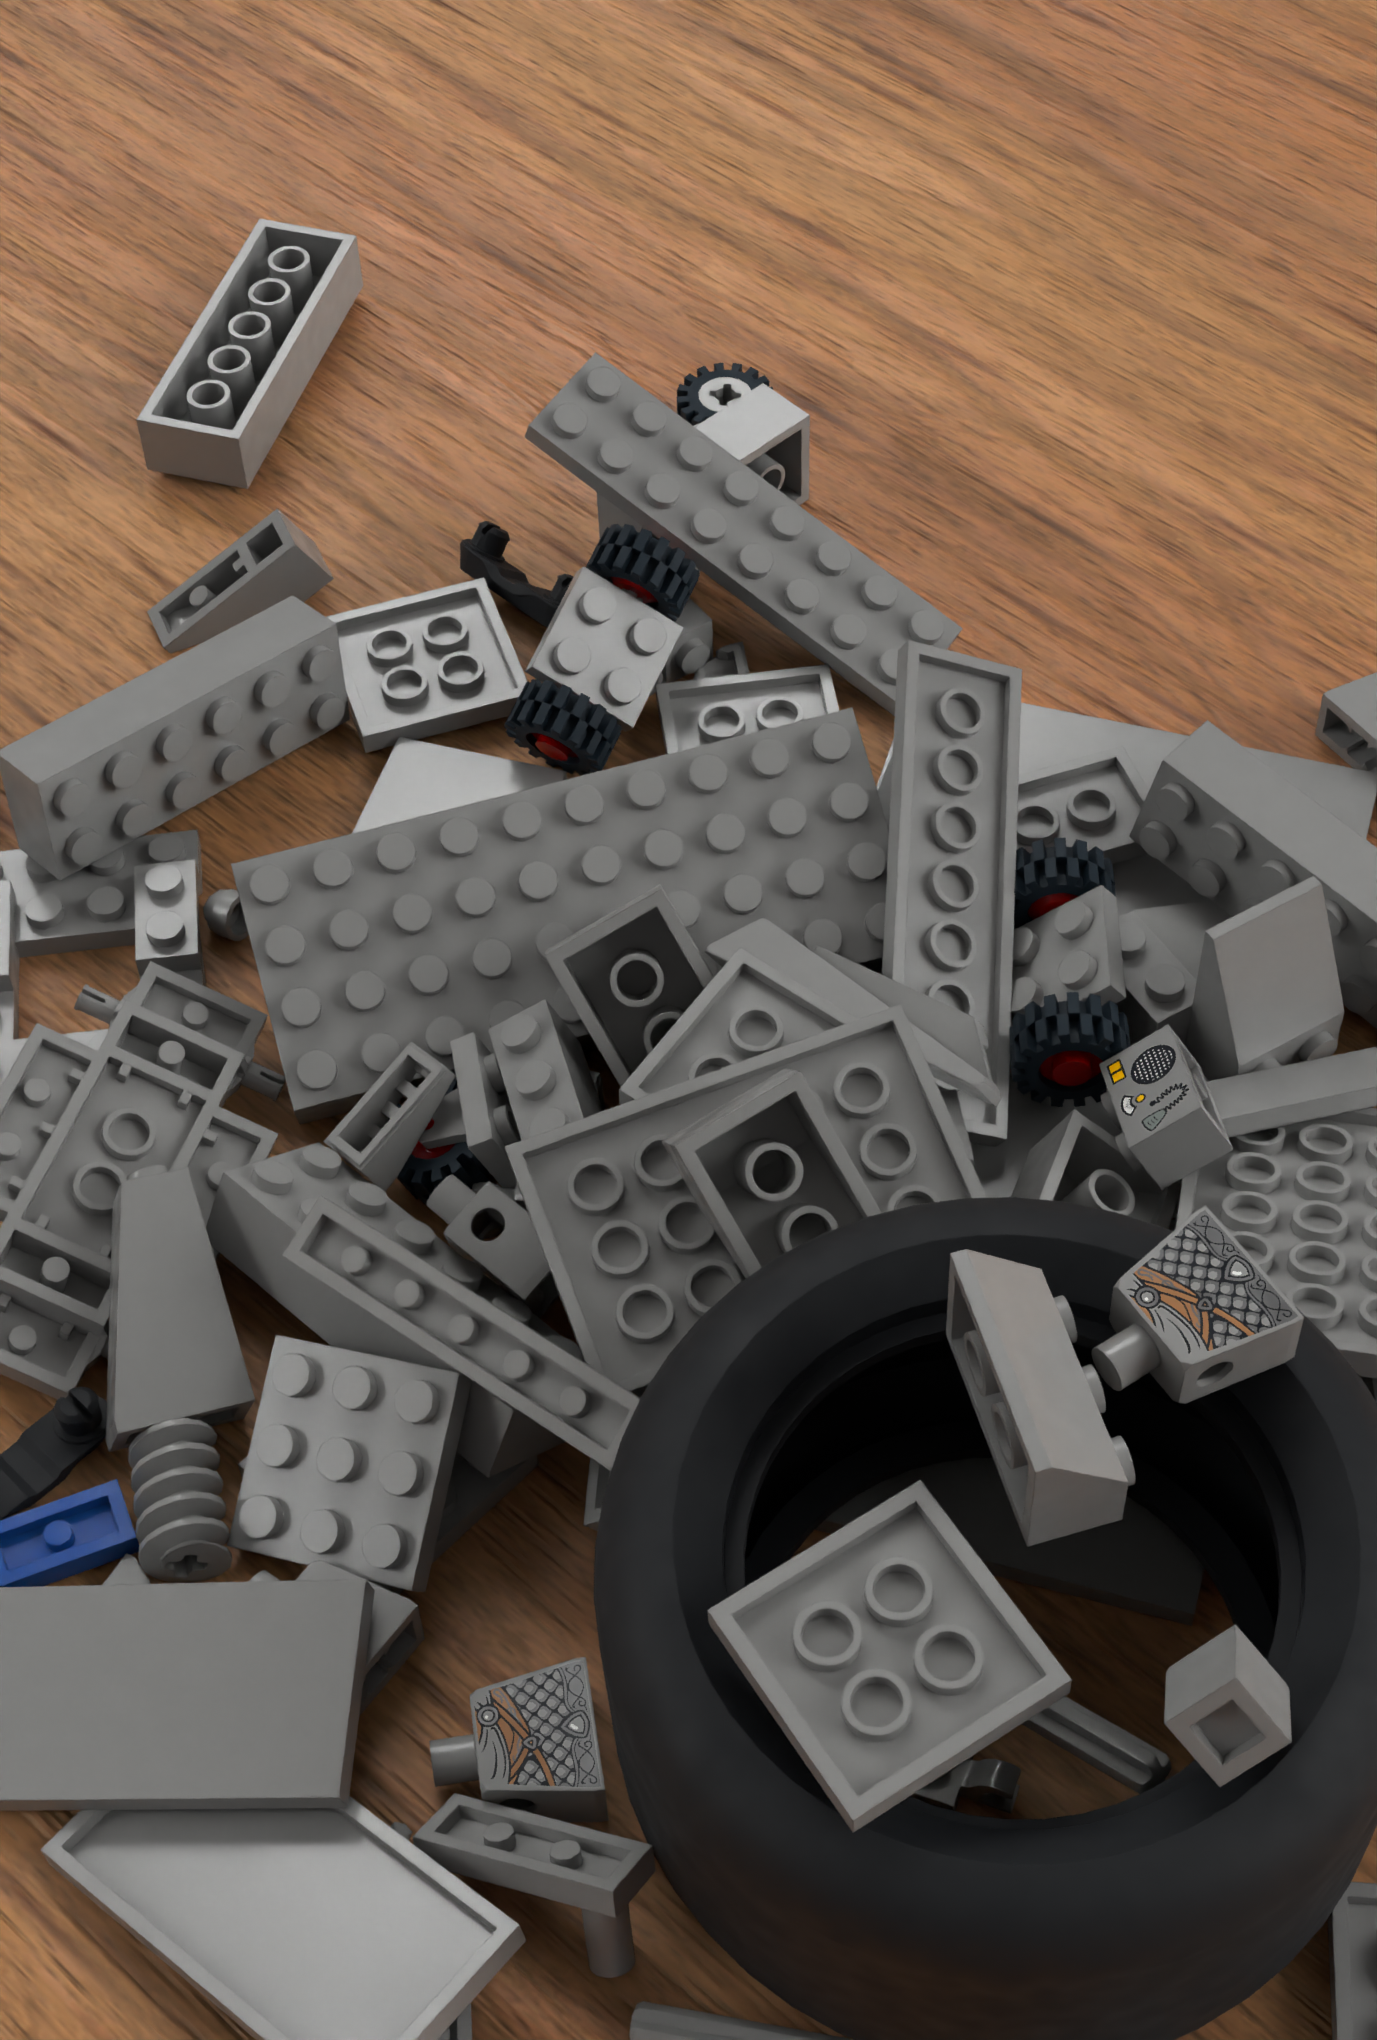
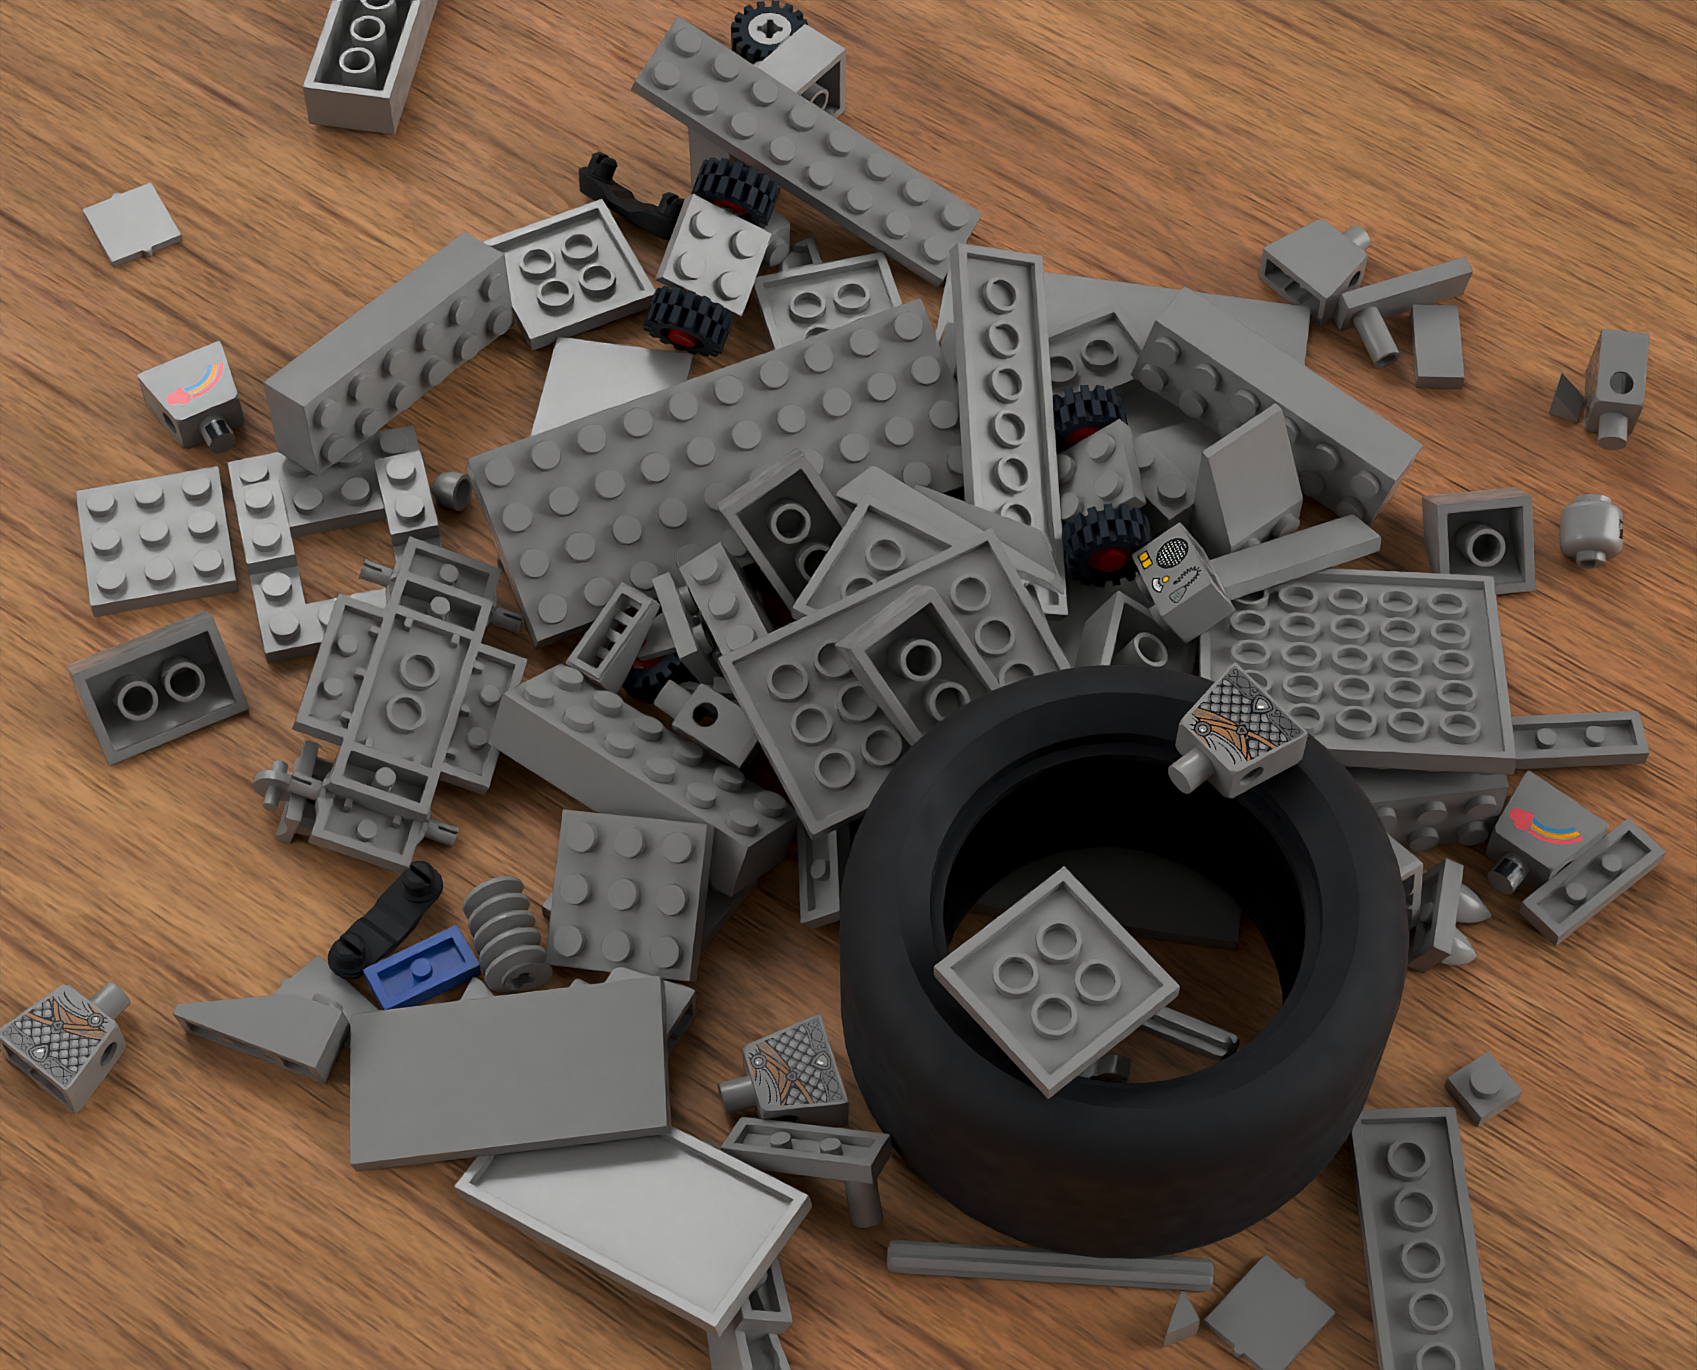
camera: 10 degrees left, 5 degrees up
(168, 1314) = (474, 800): light grey slope -> none
(240, 582) = (410, 220): light grey slope -> none
(464, 1330) = (710, 795): light grey plate -> none
(1035, 1398) = (1133, 804): light grey slope -> none
(1227, 1706) = (1282, 992): light grey panel -> none

